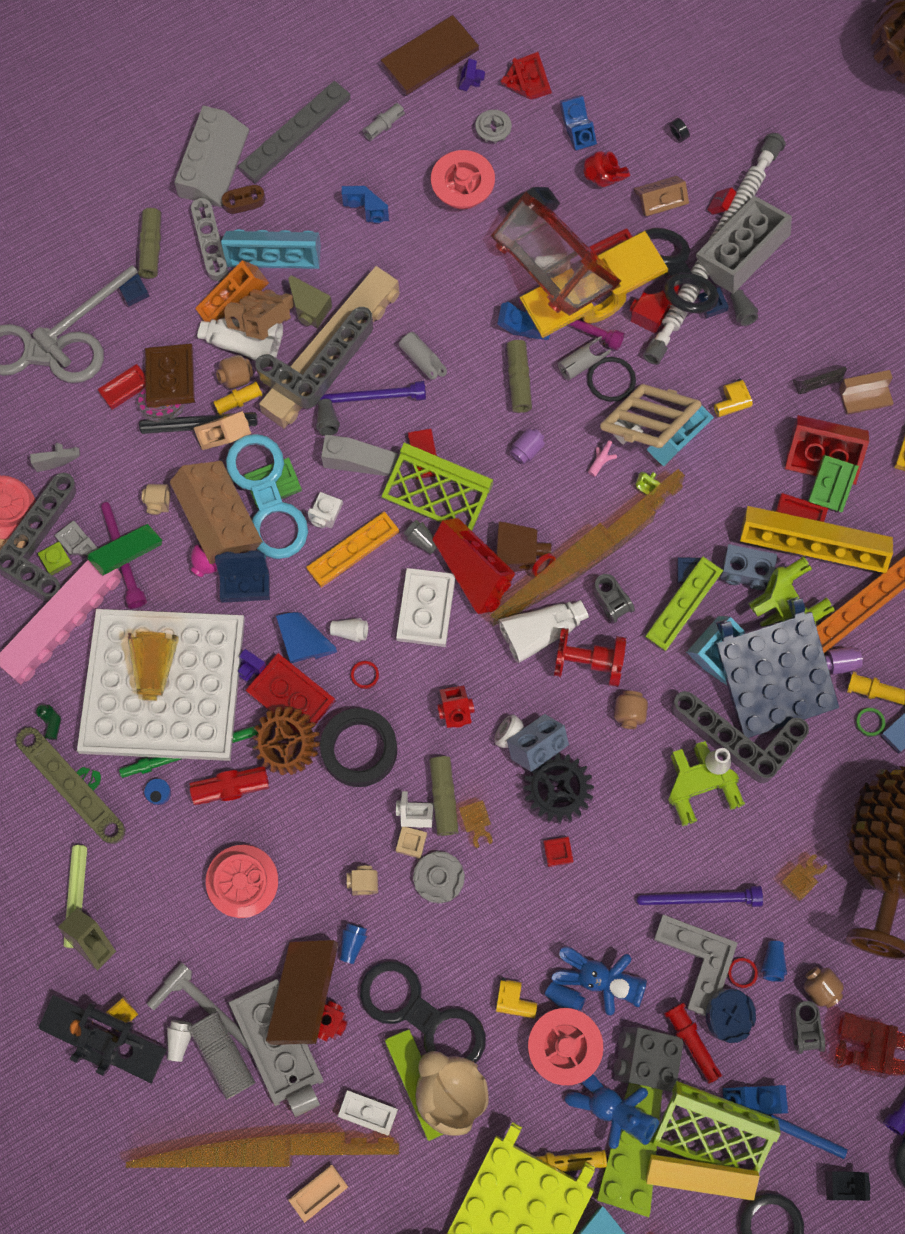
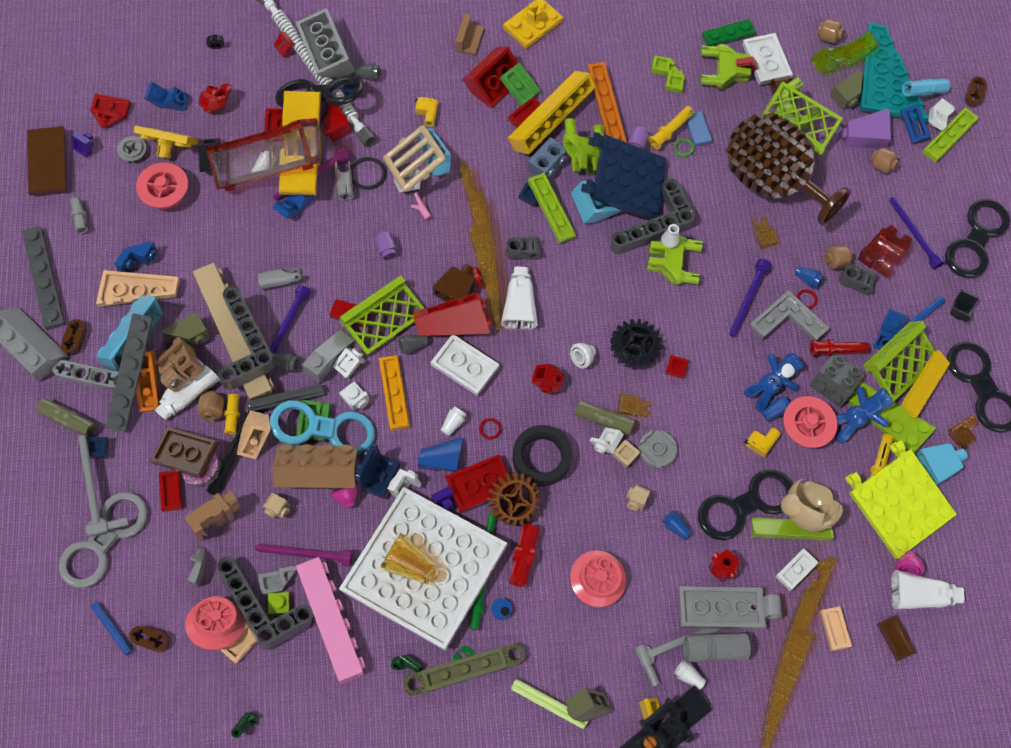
camera: 70 degrees left, 5 degrees down
(120, 443) = (213, 512): none -> medium nougat hips
(124, 549) = (306, 545): green tile -> none
(223, 270) = (129, 372): none -> dark grey plate
(250, 610) = (401, 480): none -> white bracket
(283, 440) = (276, 399): none -> dark grey axle
(302, 992) = (700, 569): reddish brown tile -> none
(326, 215) = (127, 287): none -> light nougat wing
(362, 482) = (348, 361): none -> white bracket
(519, 376) = (331, 225): olive axle -> none
(522, 149) = (165, 139): none -> yellow plate
(538, 742) = (601, 338): sand blue brick -> none
(601, 658) = (568, 268): red piece -> none
(631, 709) = (605, 275): medium nougat head -> none
(646, 483) = (455, 188): lime piece -> none
(662, 195) = (255, 75): medium nougat panel -> none
(730, 1015) = (831, 317): dark blue tile -> none
(819, 378) = (442, 56): clear smoke slope -> none

